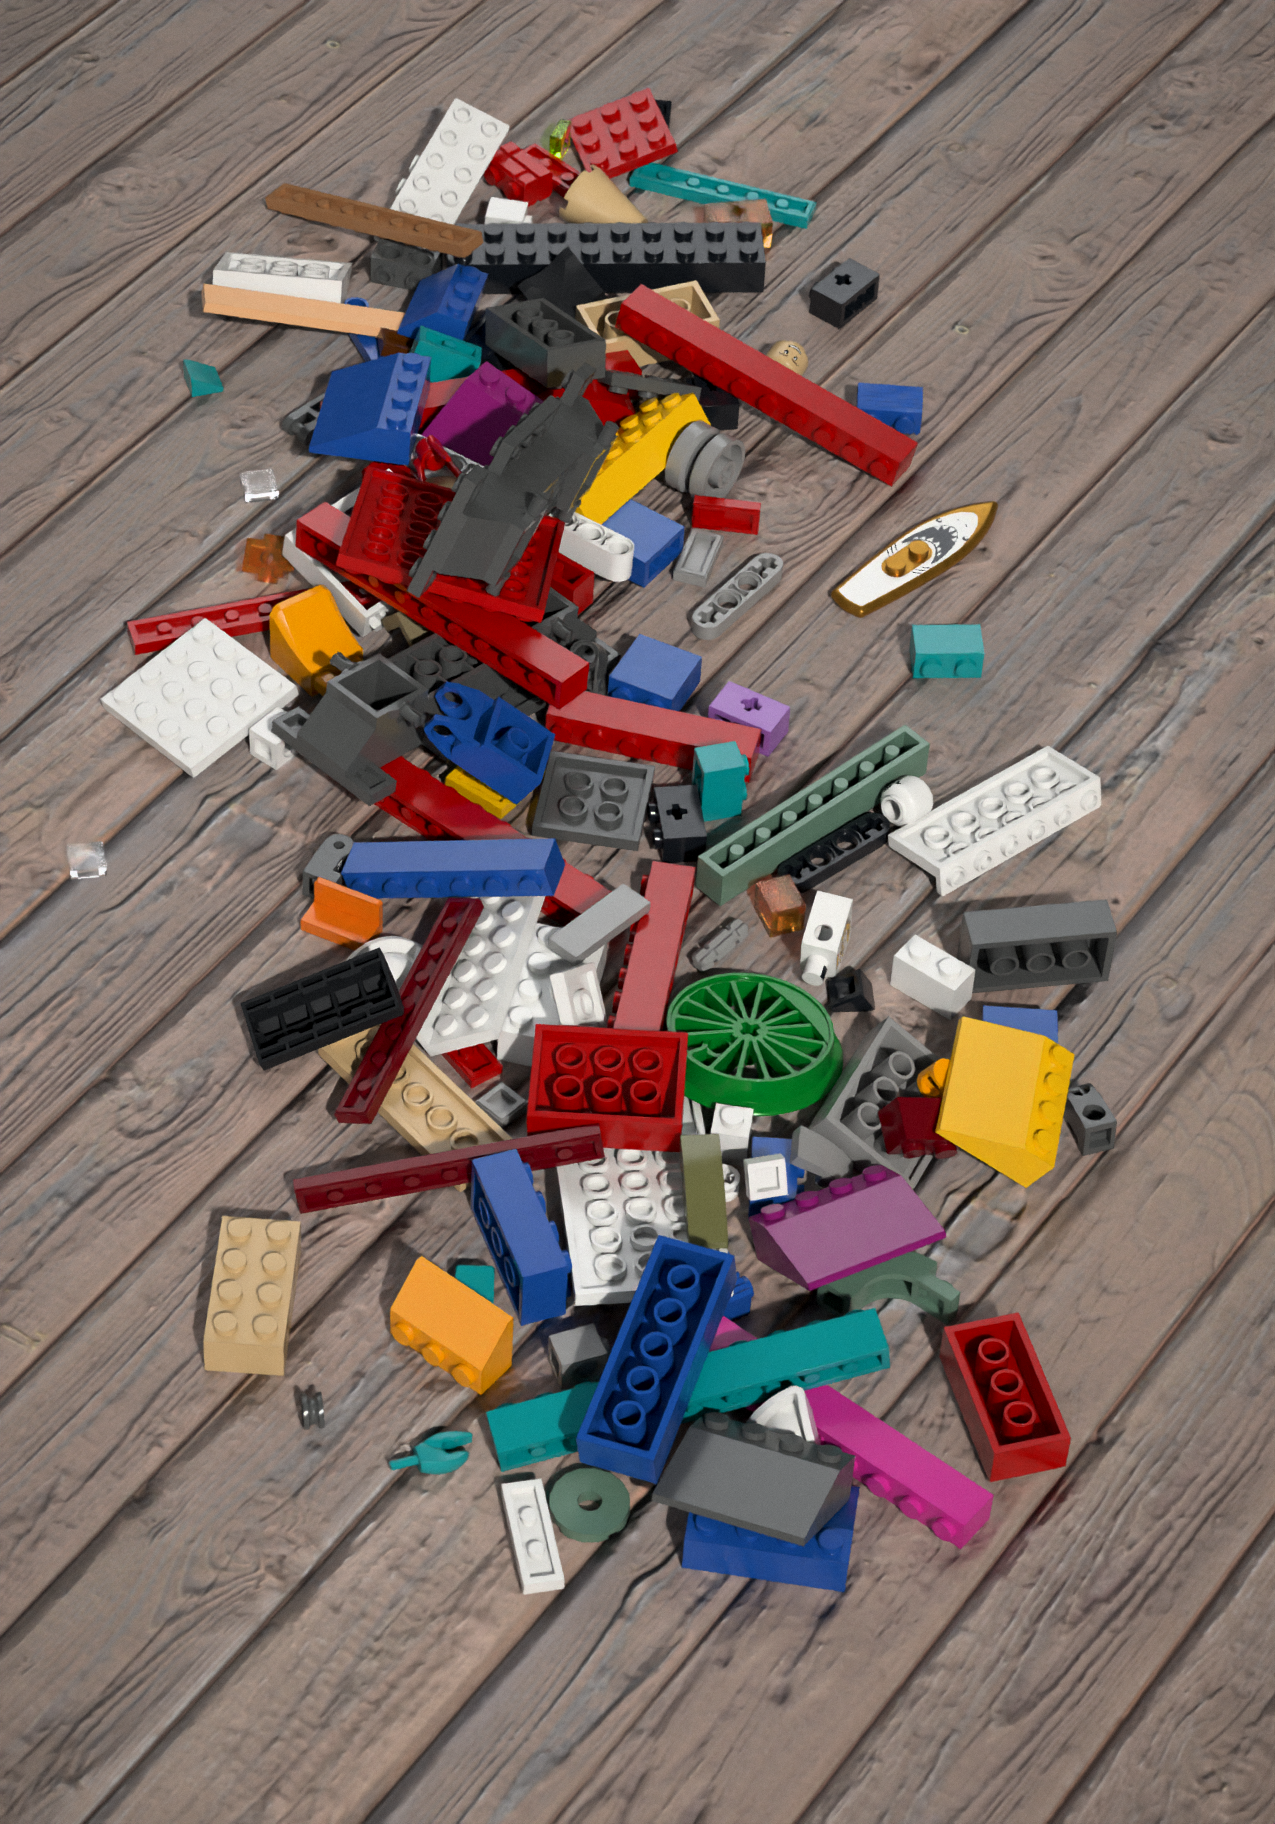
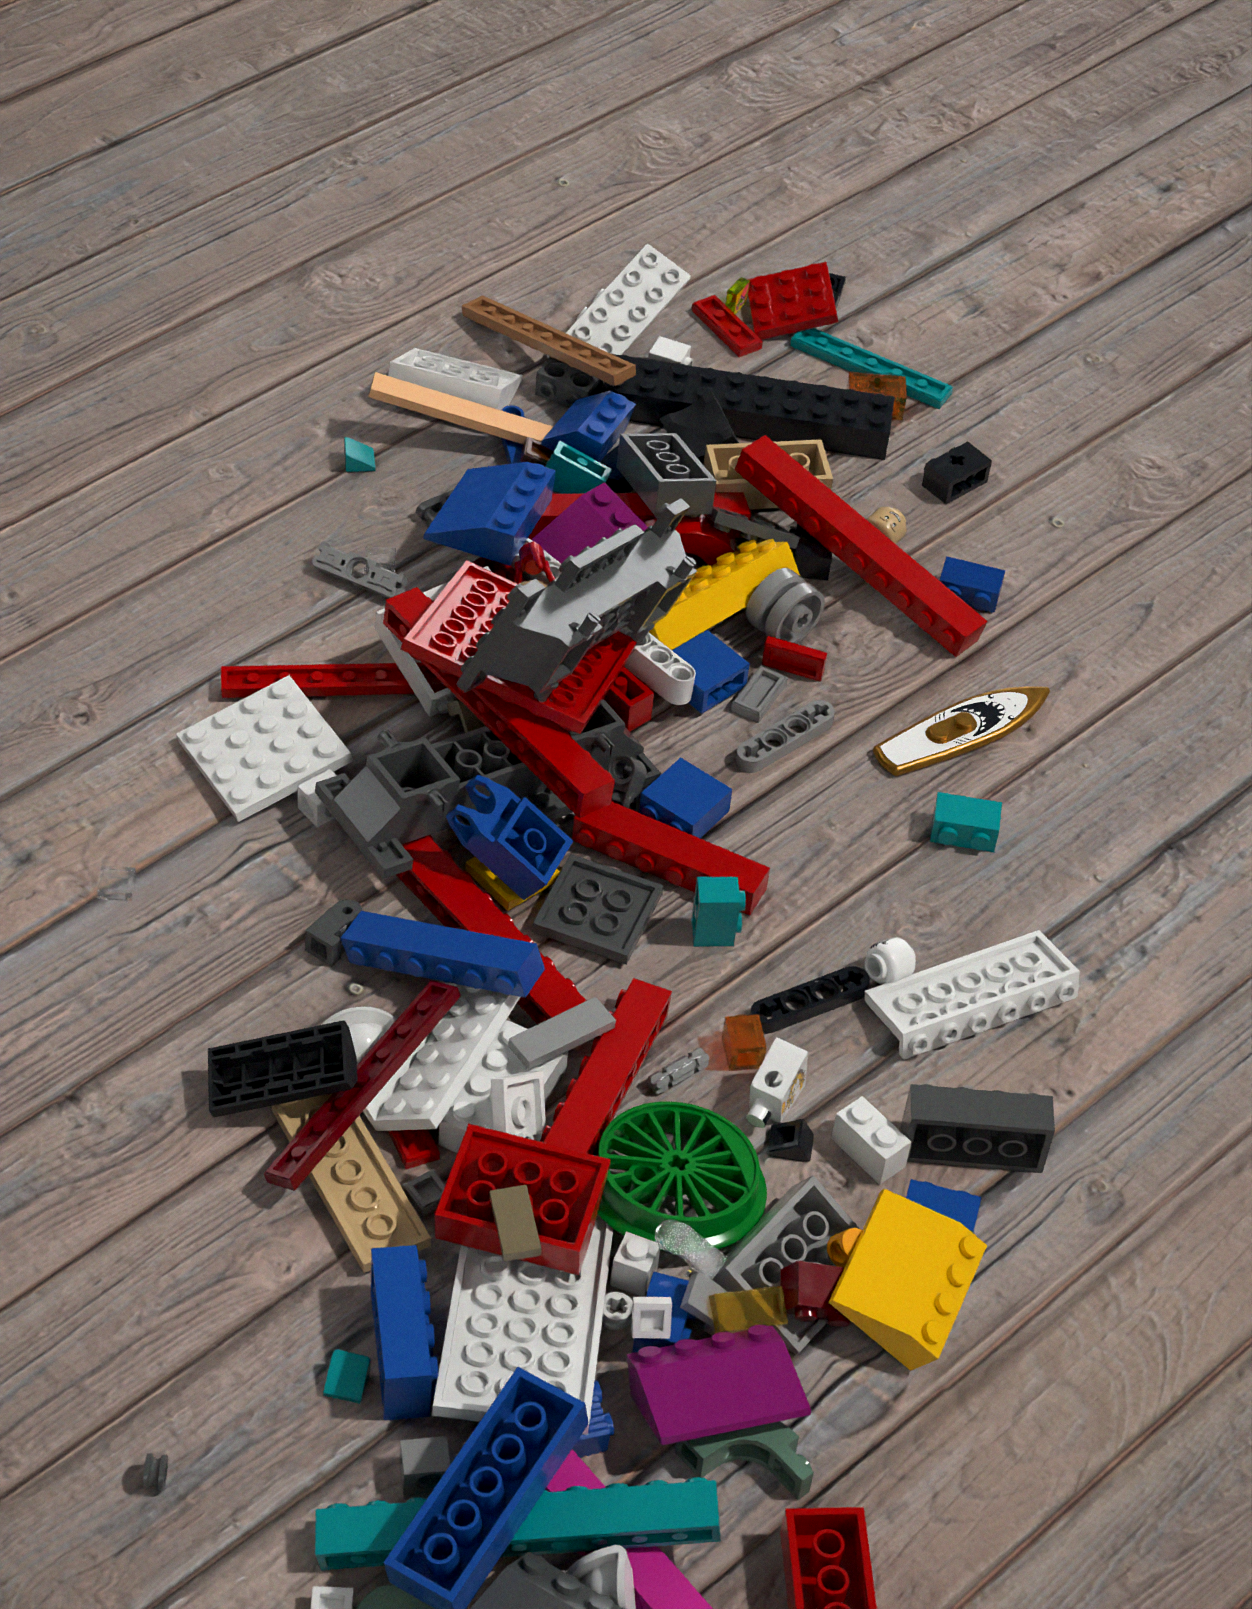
camera: 10 degrees right, 0 degrees up
(252, 1296) = (133, 1343): tan brick -> none
(257, 556) = (360, 629): clear orange brick -> none
(262, 506) = (341, 566): none -> light grey piece
(307, 635) = (379, 702): light orange hips -> none
(343, 915) = (333, 979): orange panel -> none
(432, 1456) = (256, 1540): teal hand -> none
(442, 1168) = (348, 1249): dark red tile -> none
(452, 1326) = (310, 1414): light orange slope -> none
(519, 175) = (691, 321): red brick -> none
(598, 200) = (753, 354): tan cone -> none
(611, 1108) = (515, 1223): none -> dark tan tile
(678, 823) = (670, 945): black brick -> none
(703, 1190) = (585, 1323): olive slope -> none
(754, 710) = (768, 848): medium lavender brick -> none
(784, 1106) = (690, 1247): none -> clear leg
(809, 815) = (794, 959): sand green brick -> none
(854, 1153) = (748, 1308): none -> clear yellow tile
(1090, 1119) = (988, 1313): dark grey leg -> none

